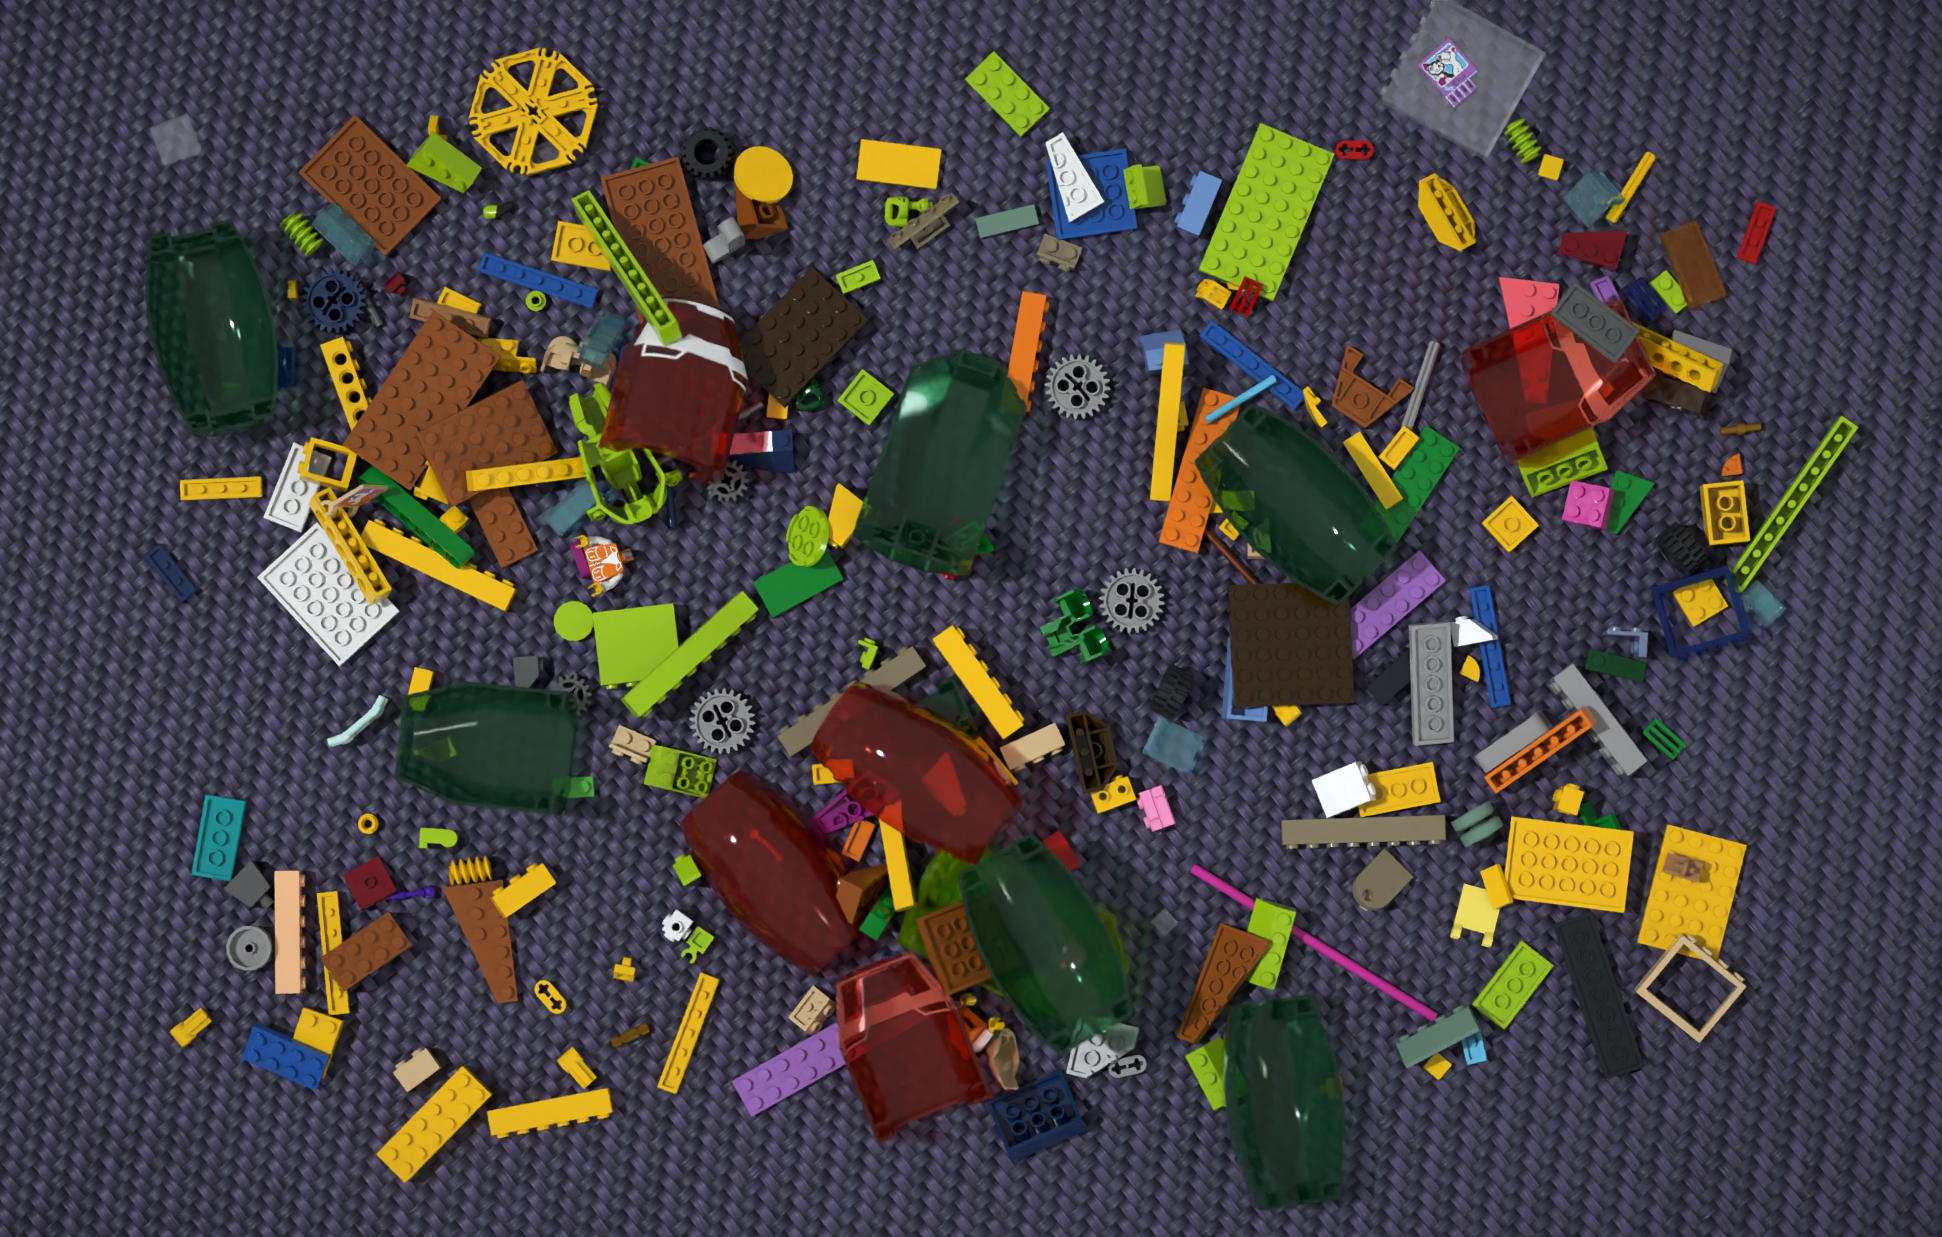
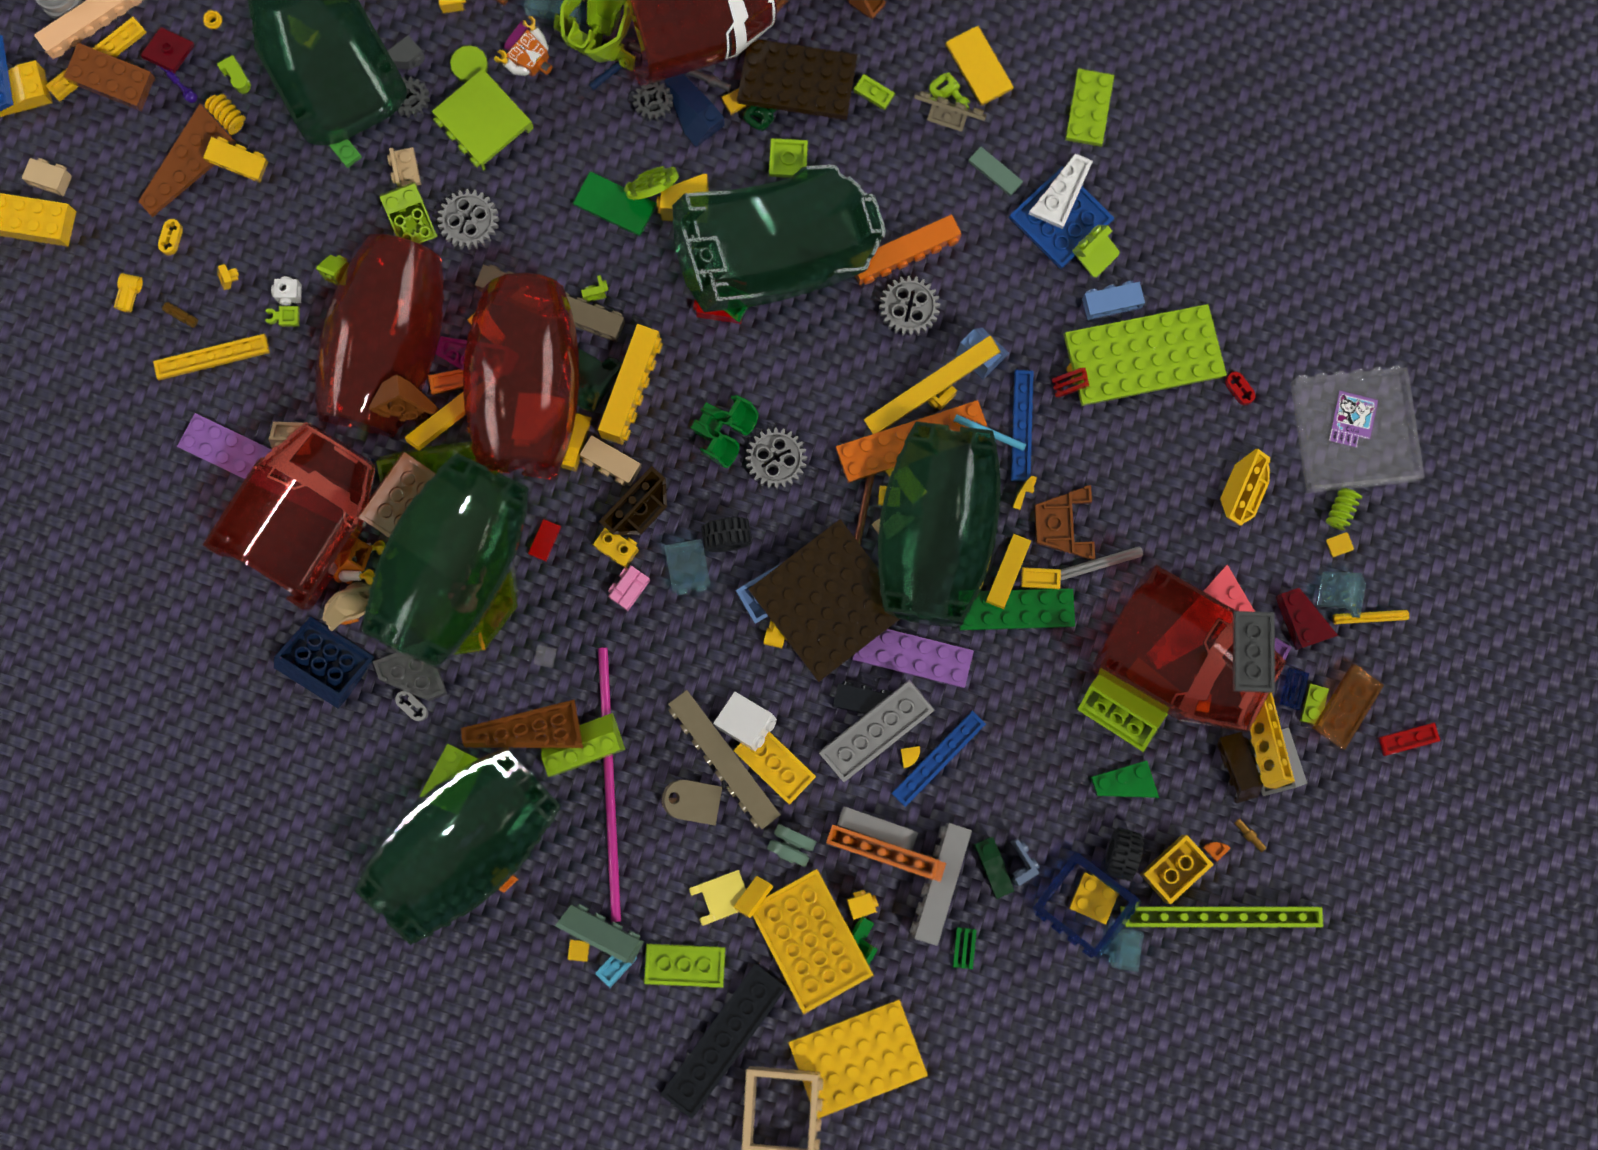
camera: 50 degrees right, 5 degrees down
(550, 1111) = (84, 300): yellow brick -> none
(690, 654) = (498, 156): lime brick -> none
(879, 915) = (392, 430): green brick -> none
(1059, 253) = (1000, 225): dark tan bracket -> none
(1213, 293) = (1054, 358): yellow bracket -> none
(1469, 632) = (938, 733): white slope -> none
(1510, 524) = (1044, 706): yellow plate -> none
(1588, 505) = (1103, 756): dark pink brick -> none
(1682, 867) = (872, 1036): medium nougat hips -> none

